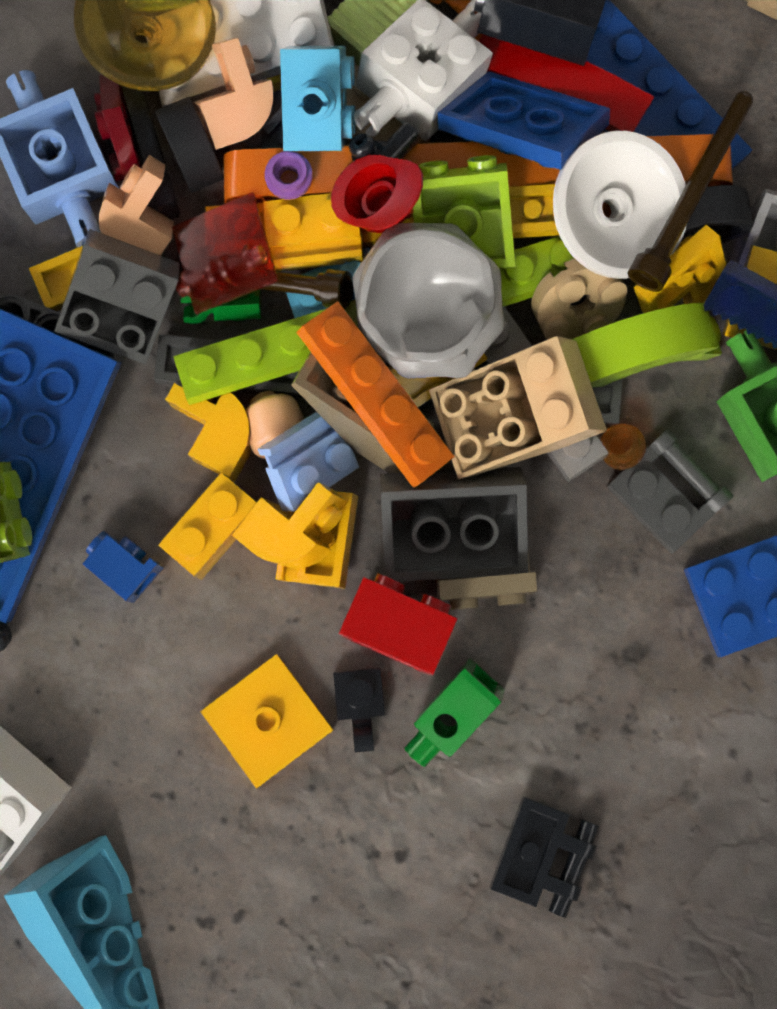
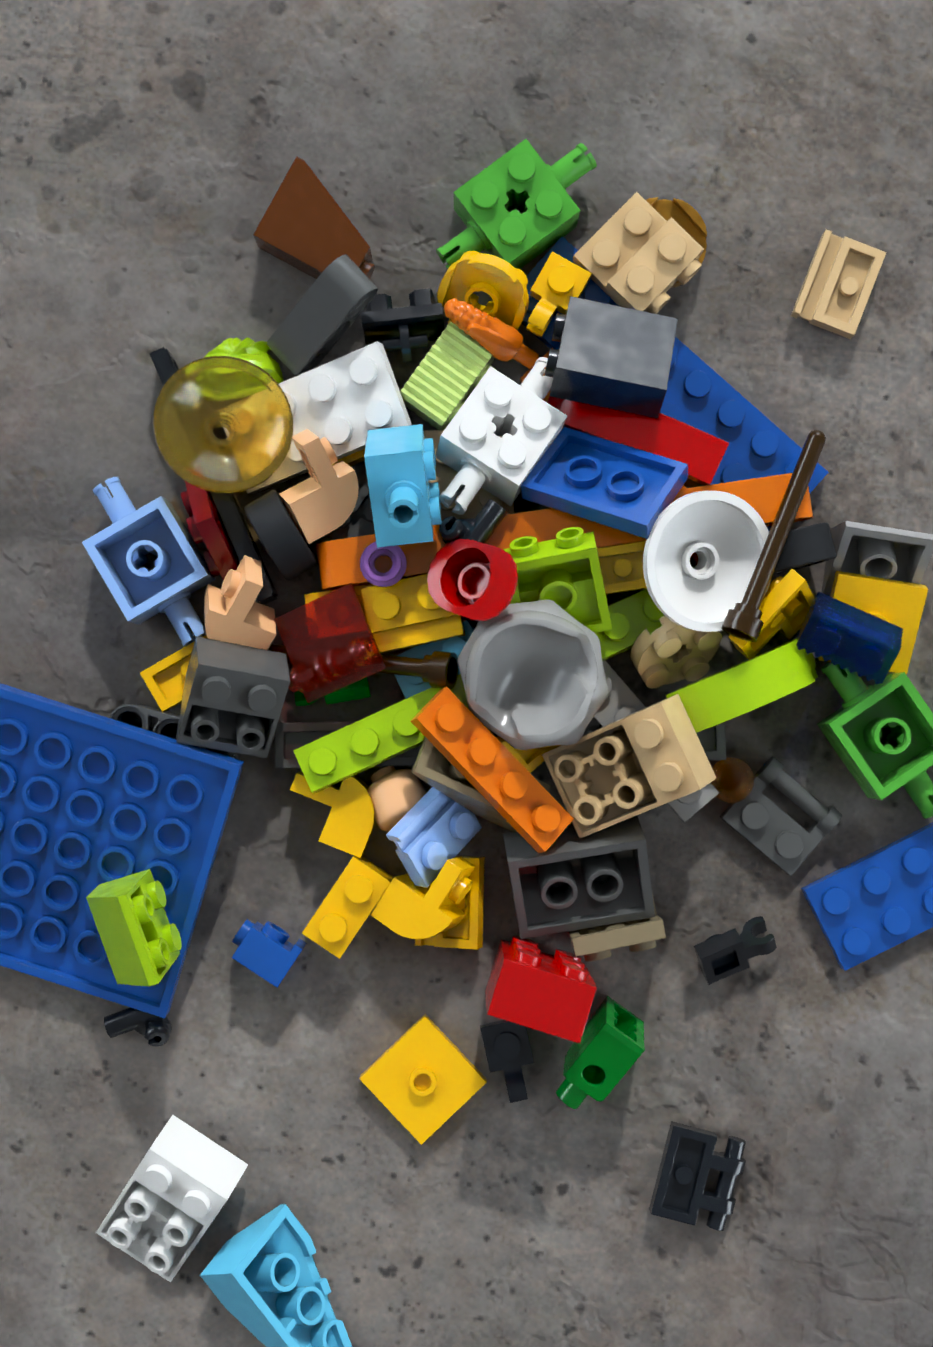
camera: 10 degrees left, 5 degrees up
(601, 621) = (729, 952): none -> black plate

